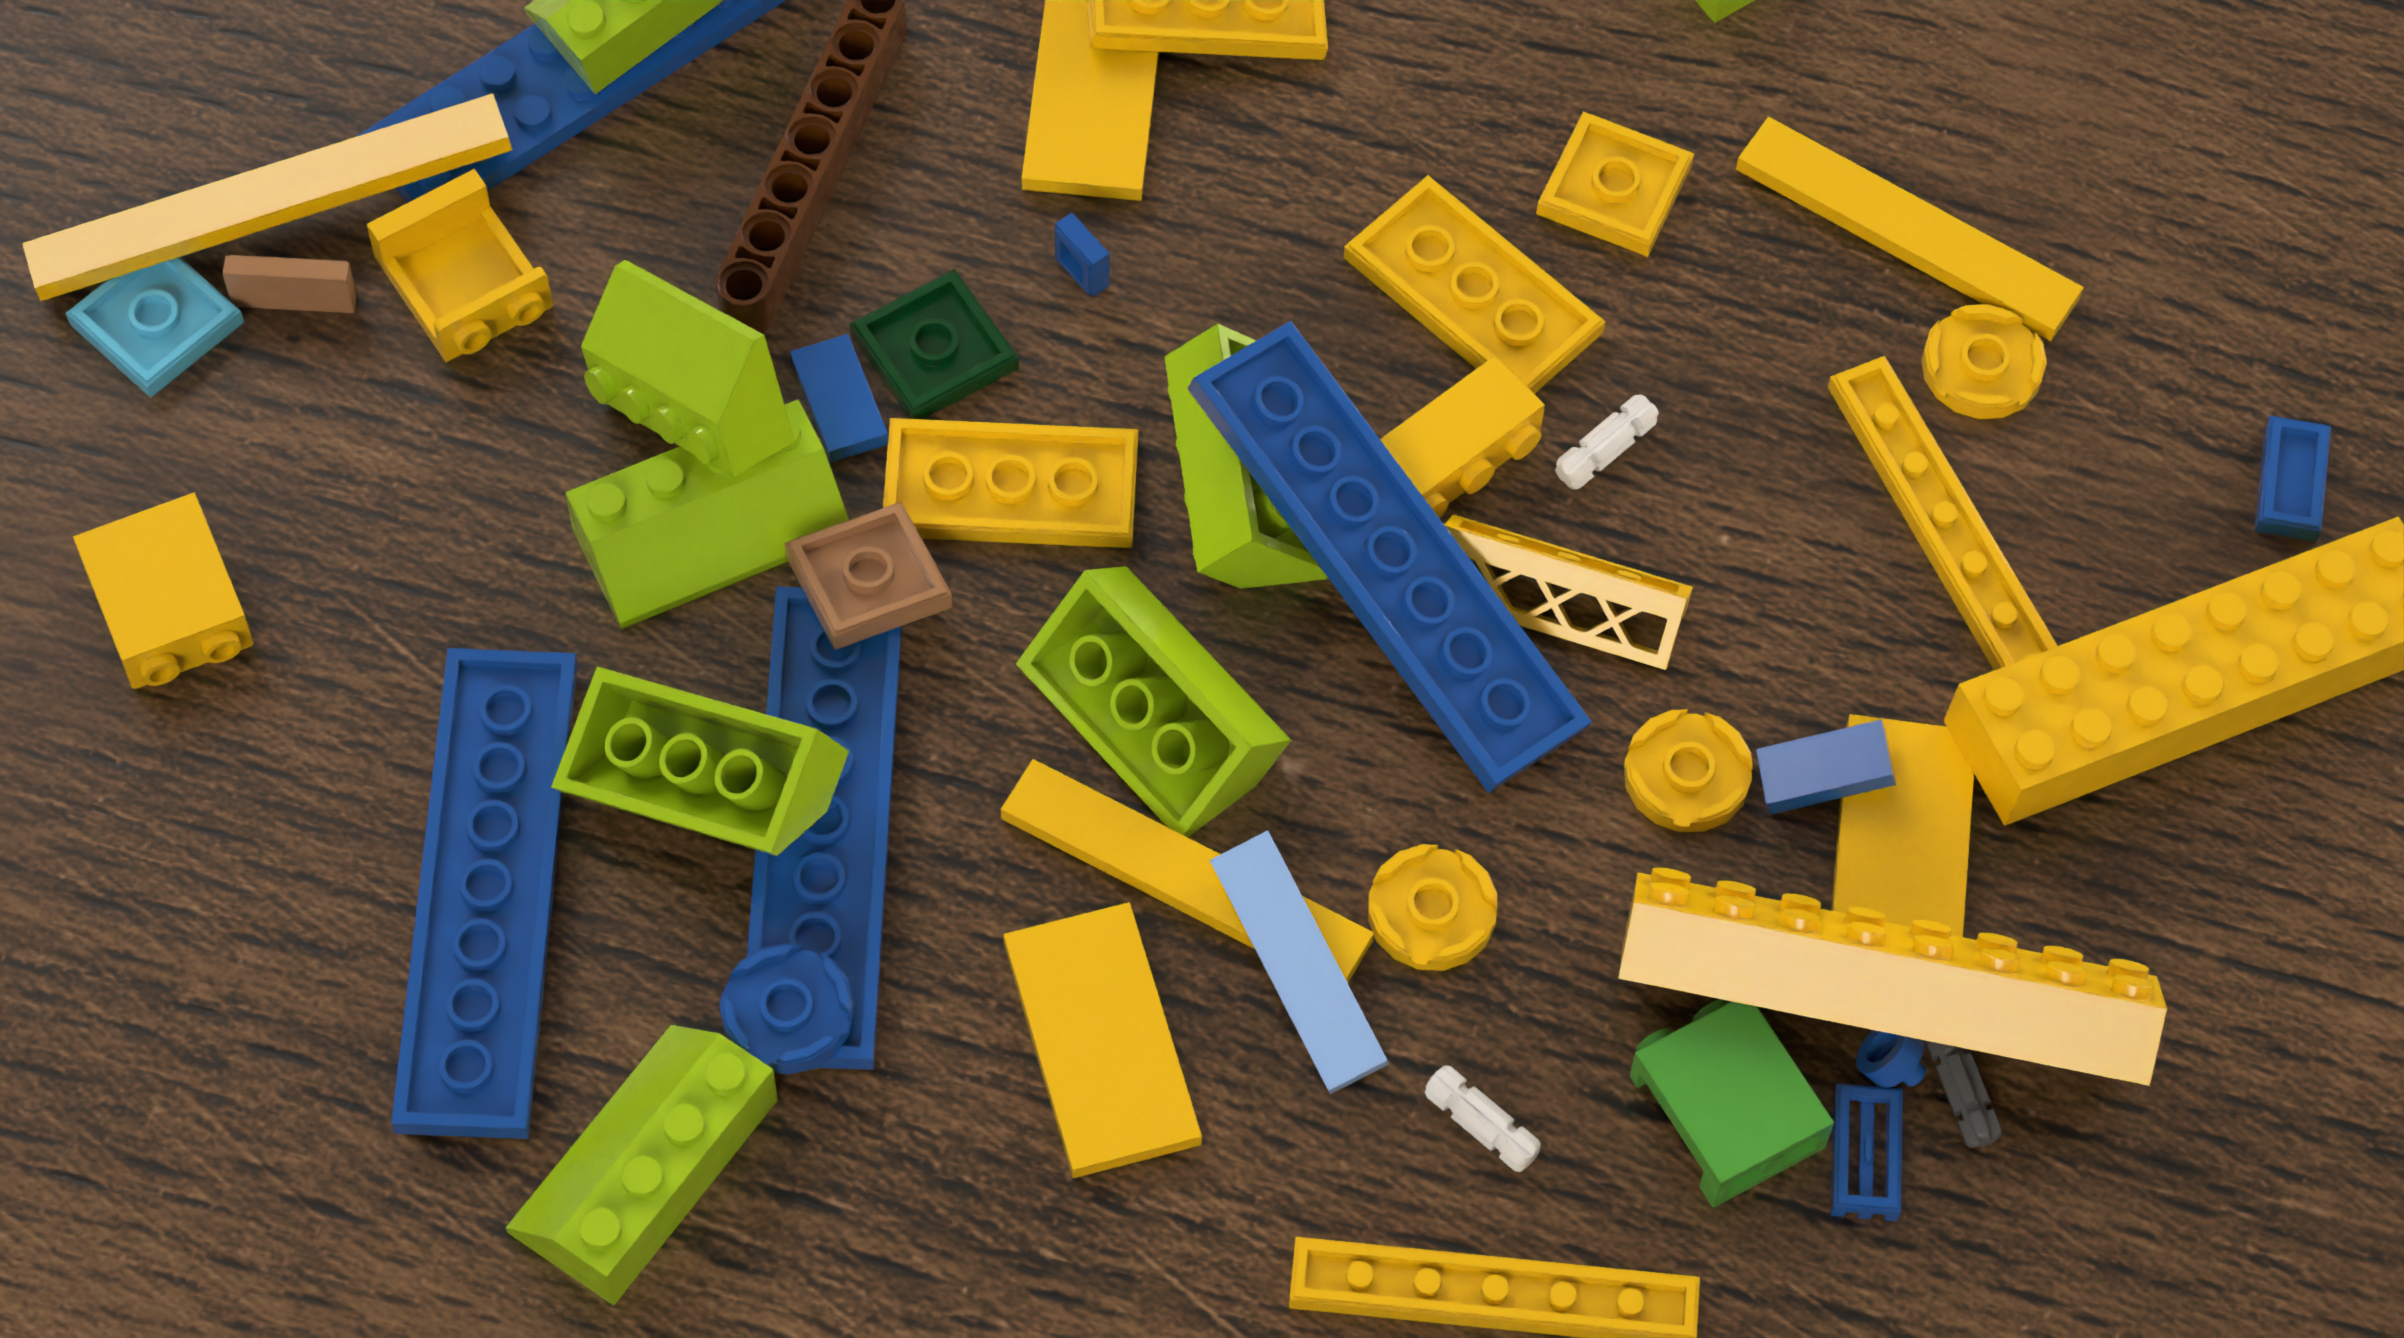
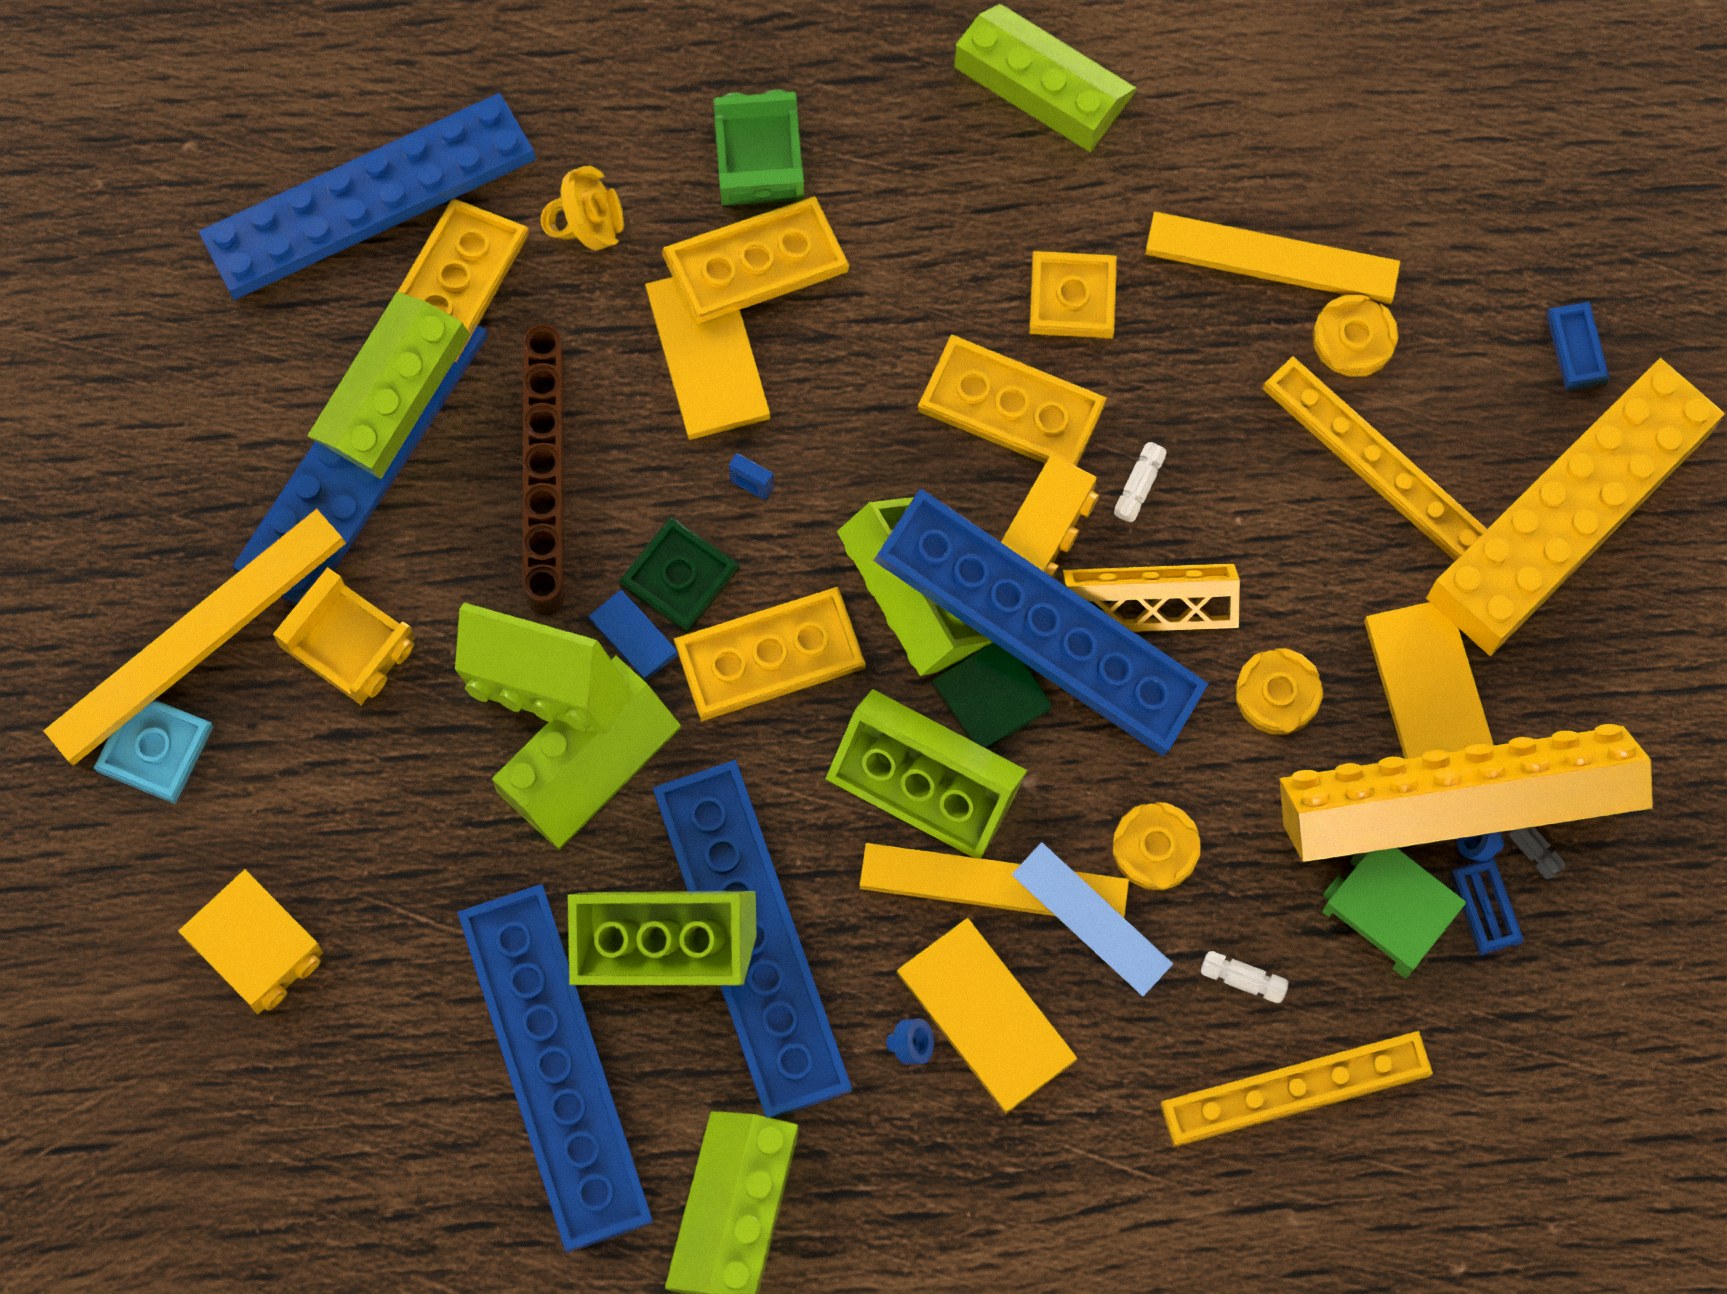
camera: 20 degrees left, 10 degrees up
(290, 283) = (236, 691): medium nougat tile -> none
(787, 1007) = (785, 1076): blue tile -> none
(868, 575) = (710, 758): medium nougat tile -> none
(983, 1031) = (912, 1041): none -> blue tile
(1288, 637) = (991, 695): none -> dark green tile
(1826, 767) = (1366, 659): tile -> none

